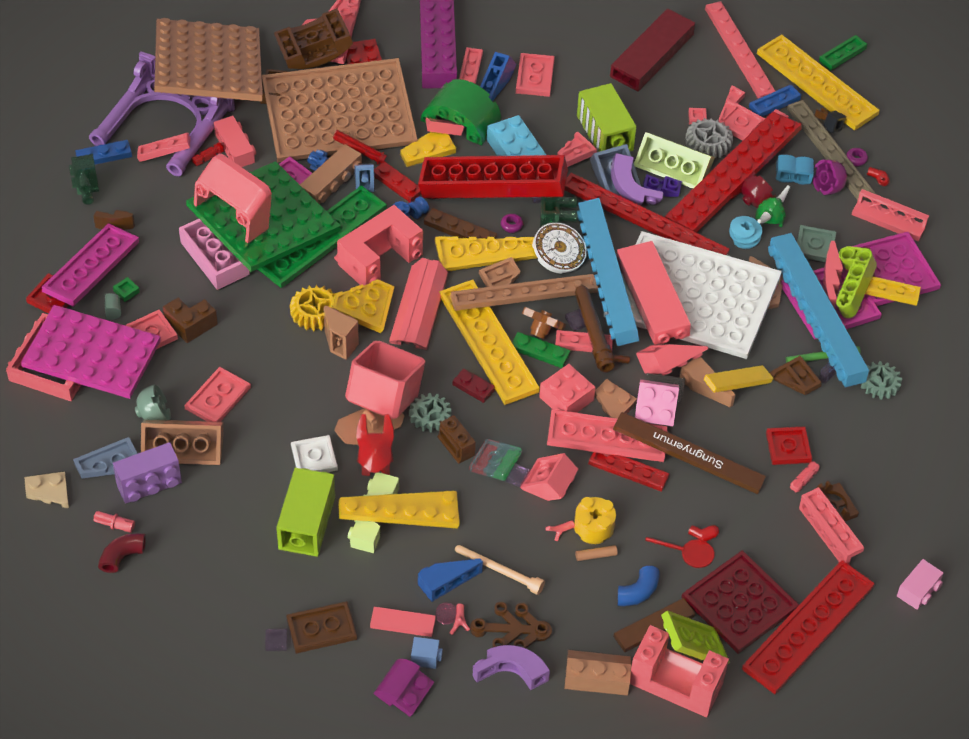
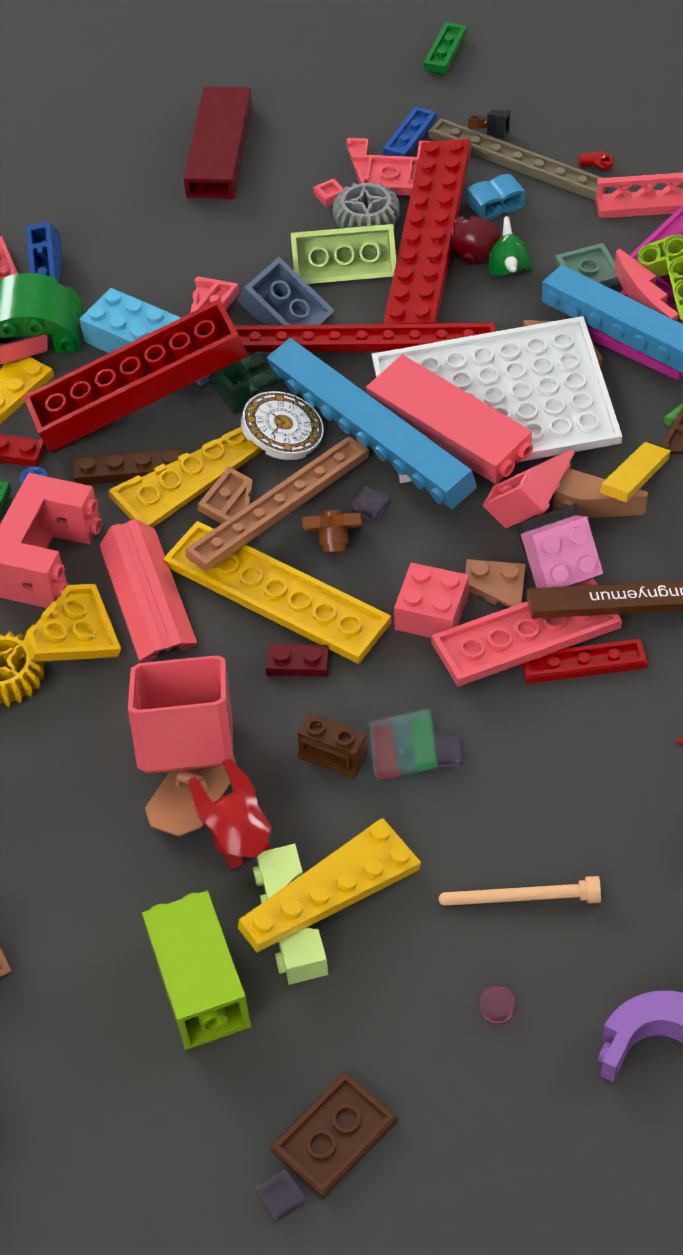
camera: 25 degrees left, 0 degrees up
(314, 454) = (145, 879): white plate -> none
(340, 332) = (64, 683): nougat slope -> none
(402, 621) = (445, 1054): coral tile -> none
(404, 686) = (522, 1154): magenta brick -> none
(418, 207) = (56, 463): blue wheel -> none
(426, 652) = (516, 1082): medium blue brick -> none
(429, 412) = (253, 733): sand green gear -> none
(446, 576) = (459, 950): blue slope -> none
(460, 619) = (523, 1002): coral bar -> none
(511, 218) = (193, 418): magenta piece -> none
(514, 627) = (607, 969): reddish brown plant -> none
(535, 74) = (90, 236): coral tile -> none
(541, 350) = (353, 566): green plate -> none
(550, 477) = (495, 728): coral slope -> none
(559, 529) = (560, 791): coral bar -> none
(577, 340) = (399, 528): coral tile -> none
(594, 520) = (600, 753): yellow brick -> none
(596, 553) = (632, 798): nougat piece -> none
(601, 350) = (437, 526): reddish brown cylinder -> none
(605, 118) = (224, 241): lime brick -> none
(627, 186) = (309, 306): medium lavender arch -> none
(669, 186) = (355, 291): dark purple slope -> none
(739, 49) = (322, 98): coral plate -> none
(745, 232) = (496, 295): medium azure piece -> none
(817, 81) = (440, 90): yellow plate -> none
(829, 177) = (545, 185): magenta cylinder -> none
(857, 152) = (554, 150): magenta piece -> none

